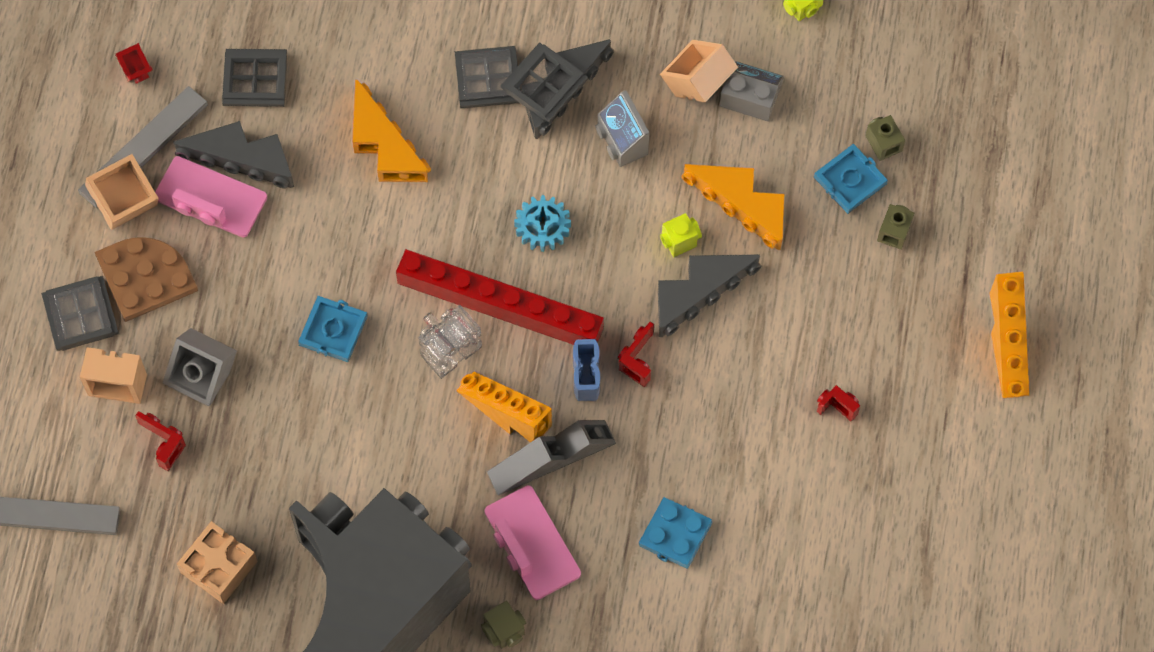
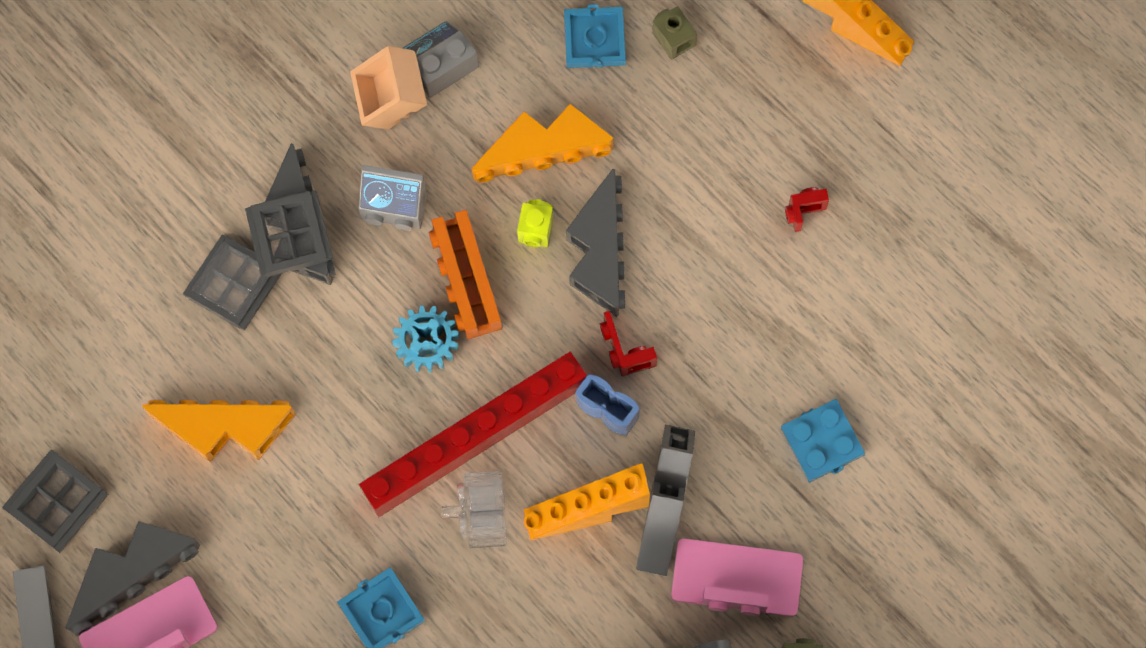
camera: 50 degrees left, 5 degrees up
(608, 217) = (466, 275): none -> orange brick

